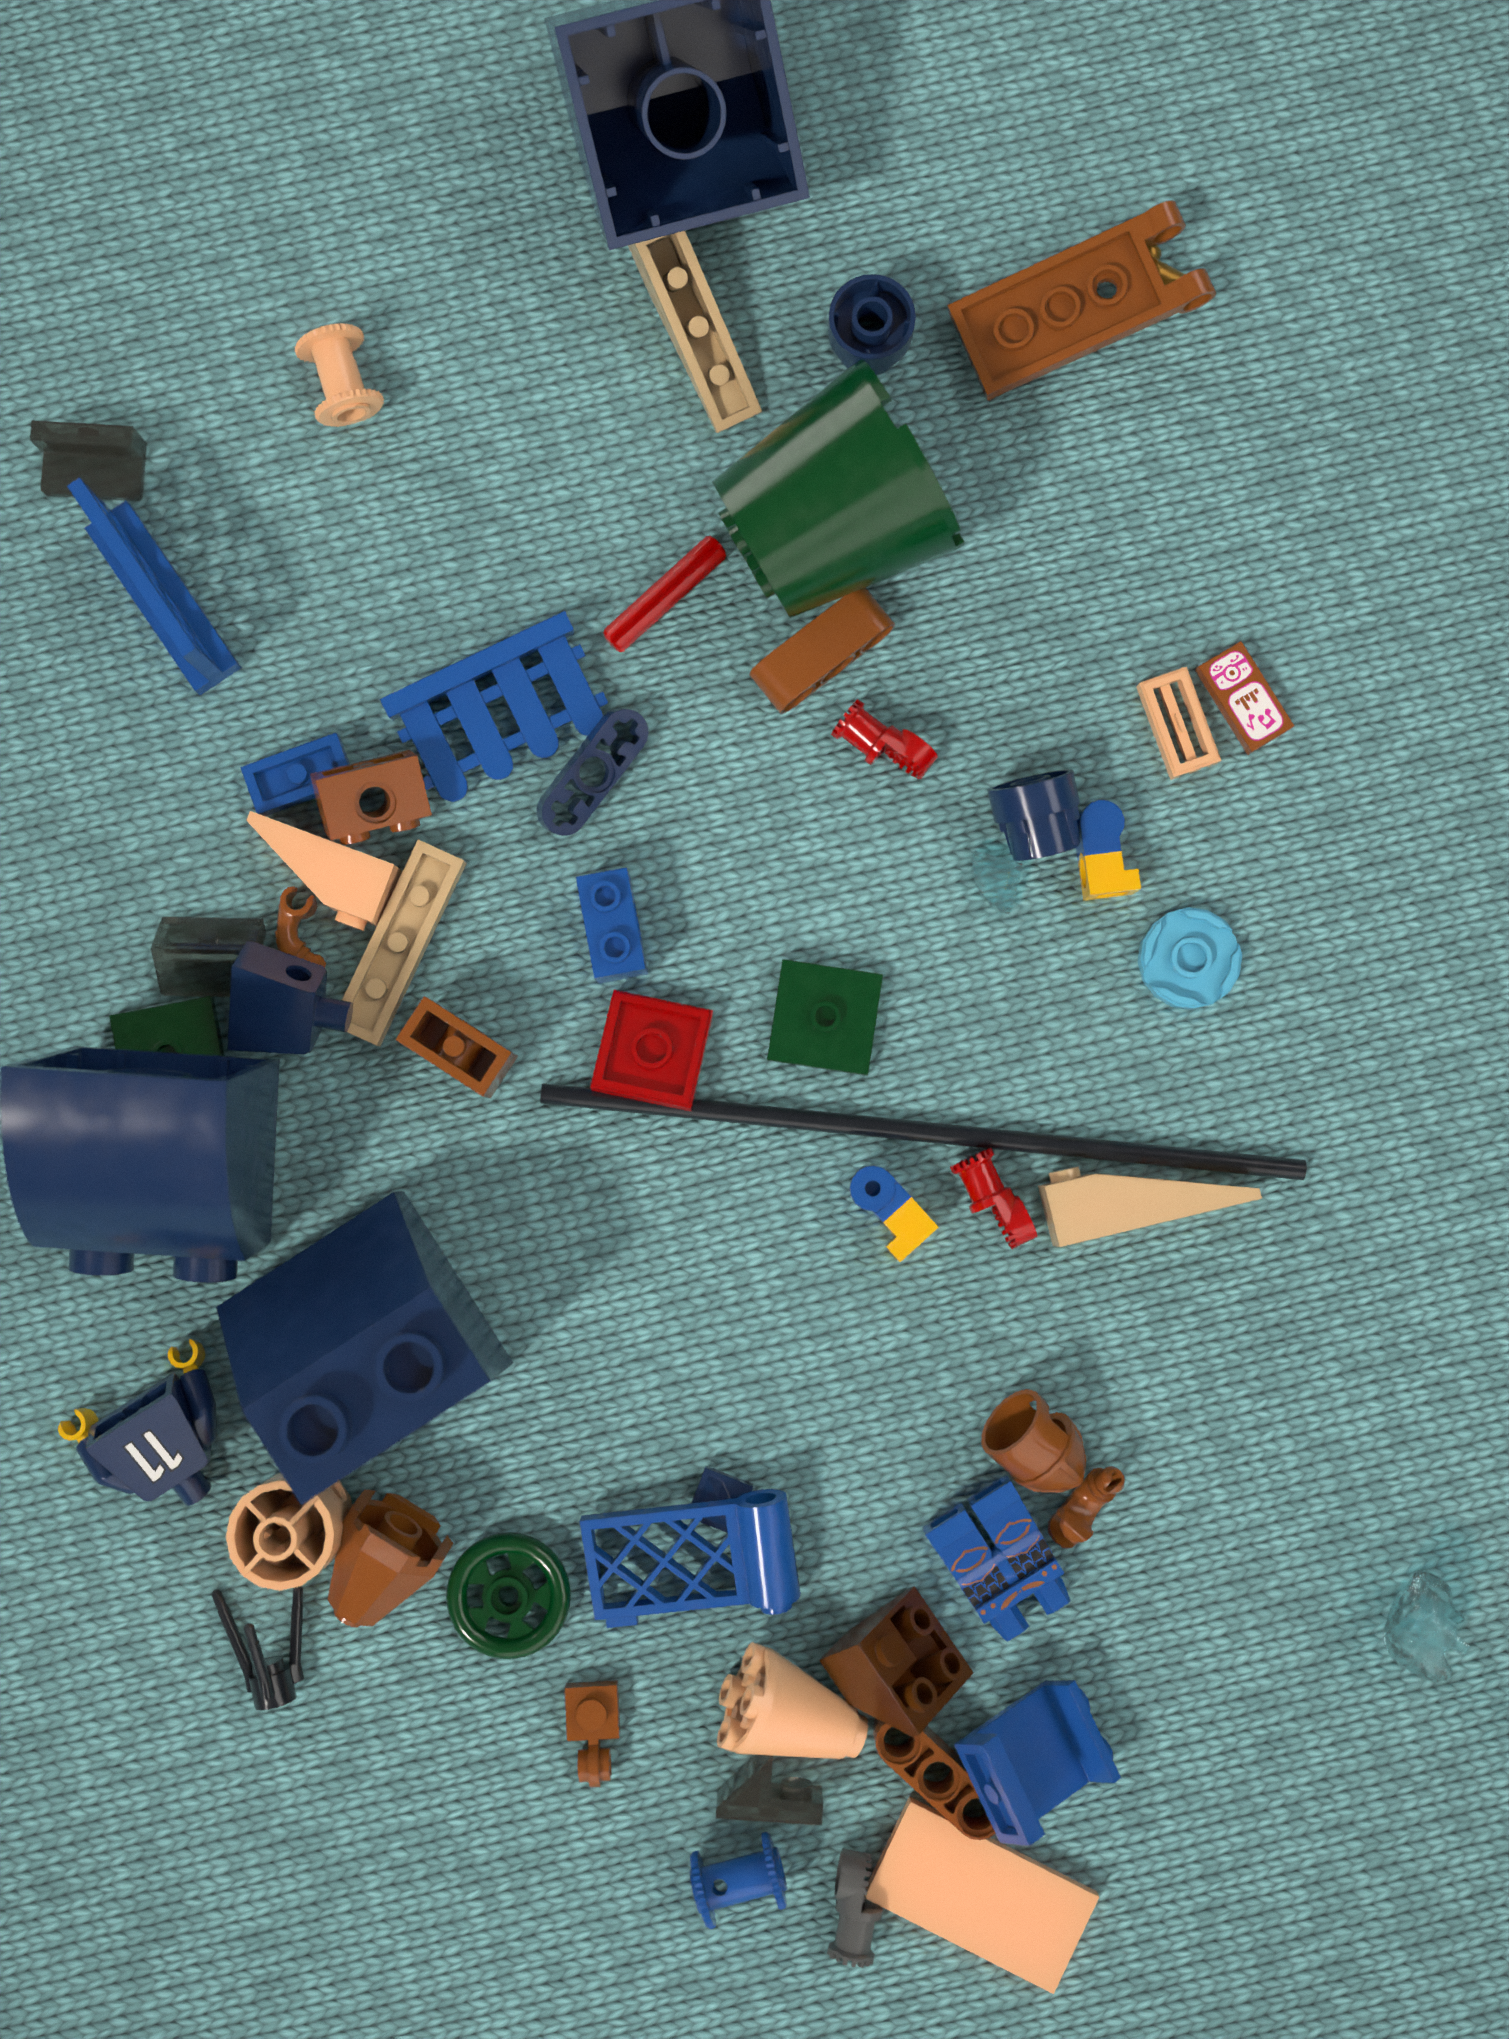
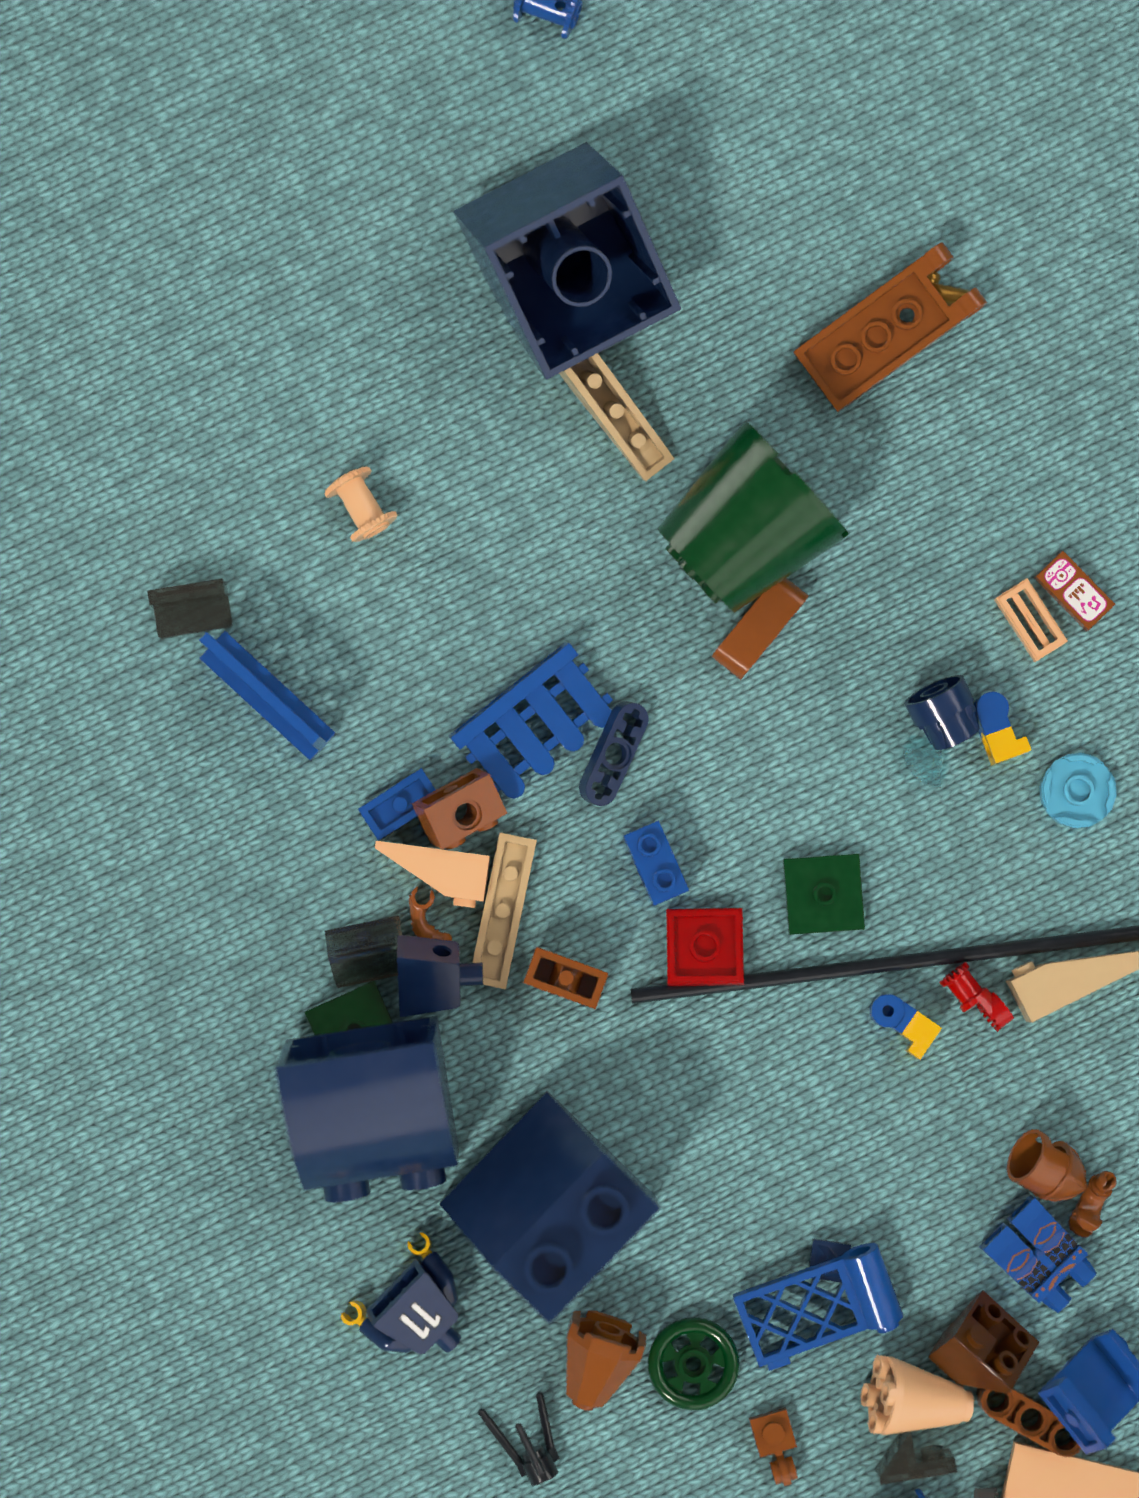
camera: 15 degrees left, 0 degrees up
(280, 1540) = (530, 1350): light nougat cylinder -> none
(664, 593) = (635, 610): red axle -> none
(874, 300) = (748, 362): dark blue piece -> none
(875, 738) = (813, 682): red connector -> none

